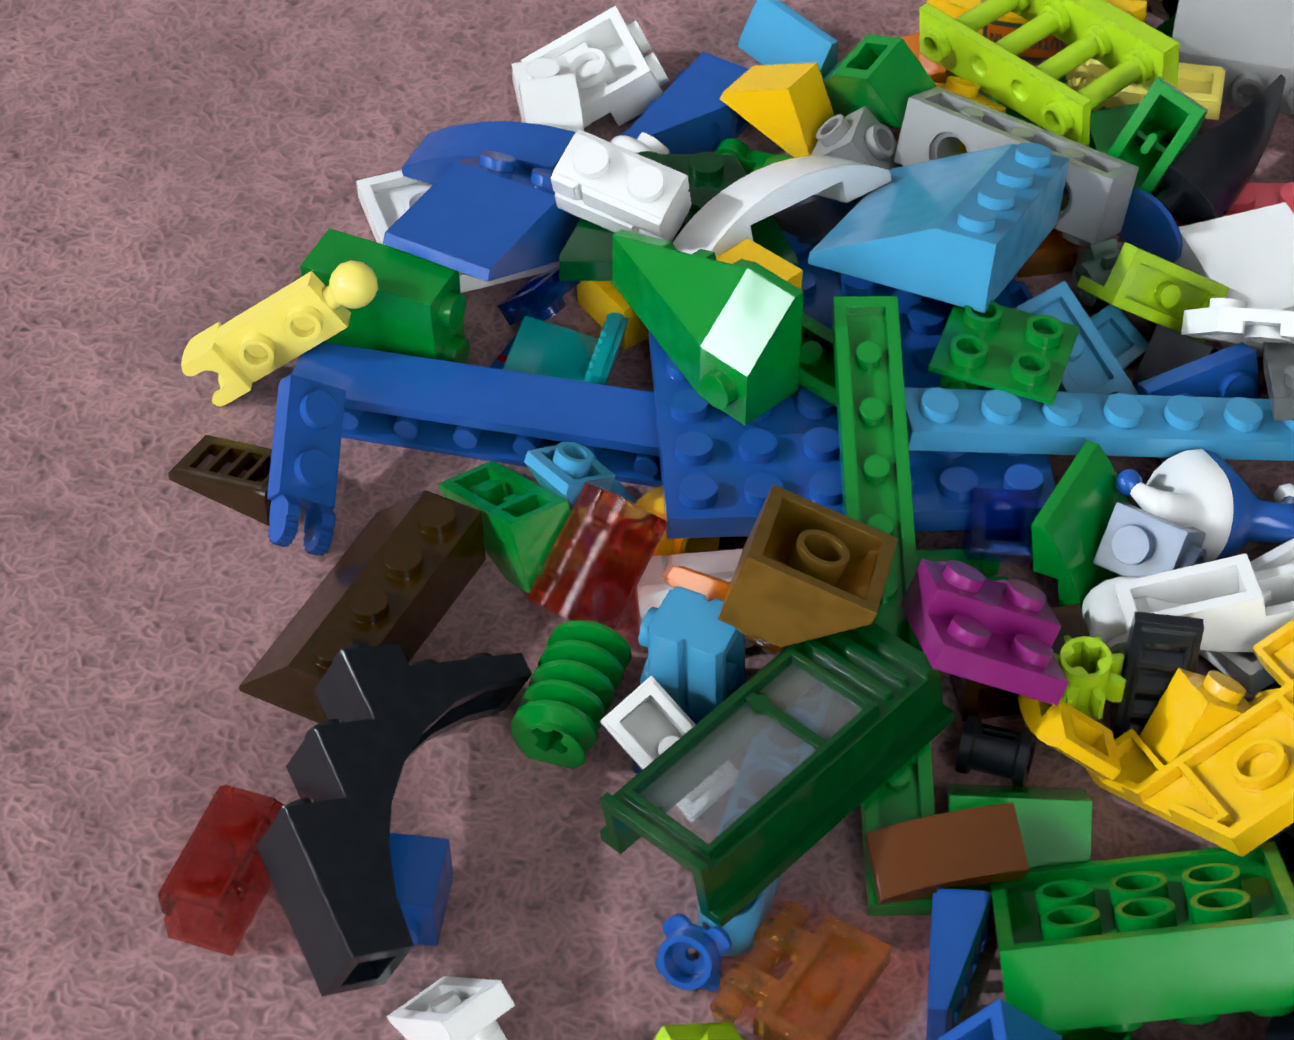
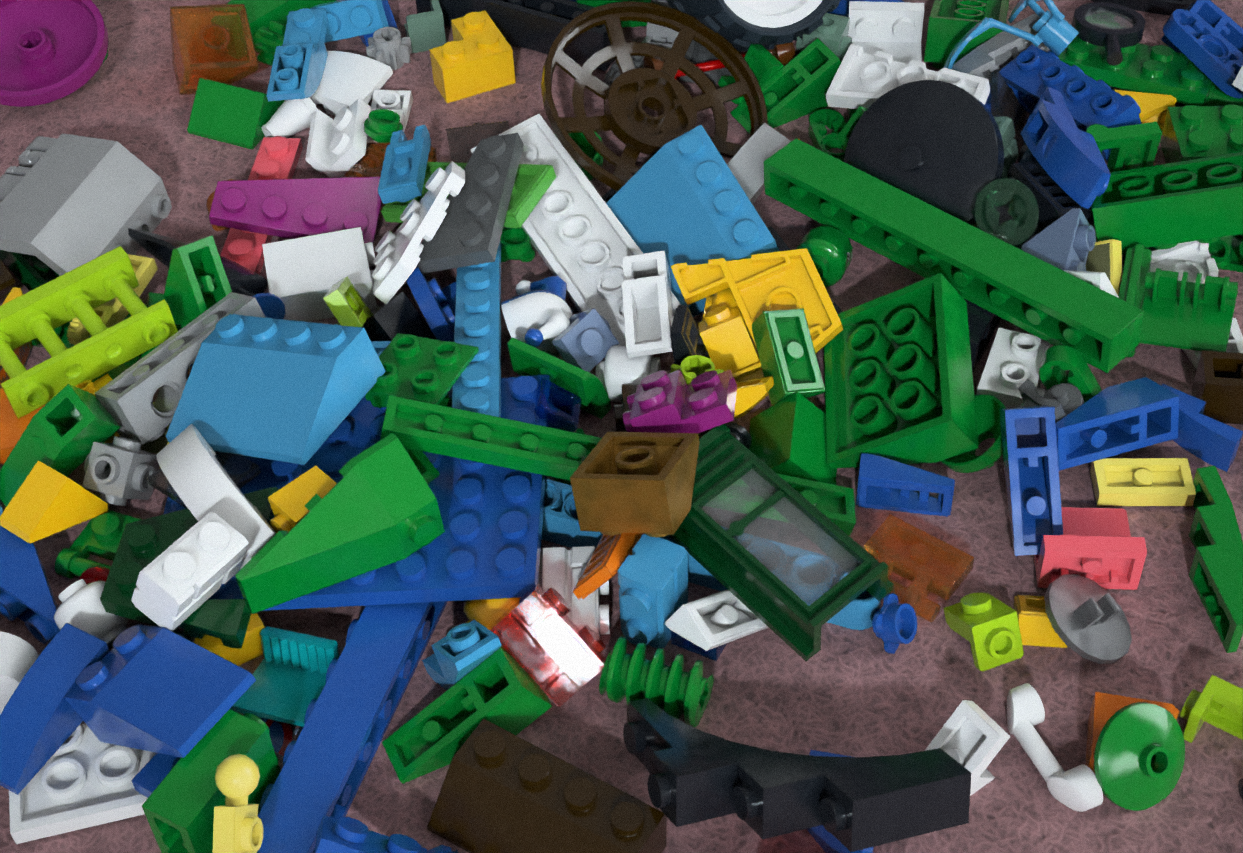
camera: 85 degrees left, 0 degrees up
(946, 852) = (834, 469): reddish brown slope -> none
(1165, 786) = (787, 354): none -> green slope

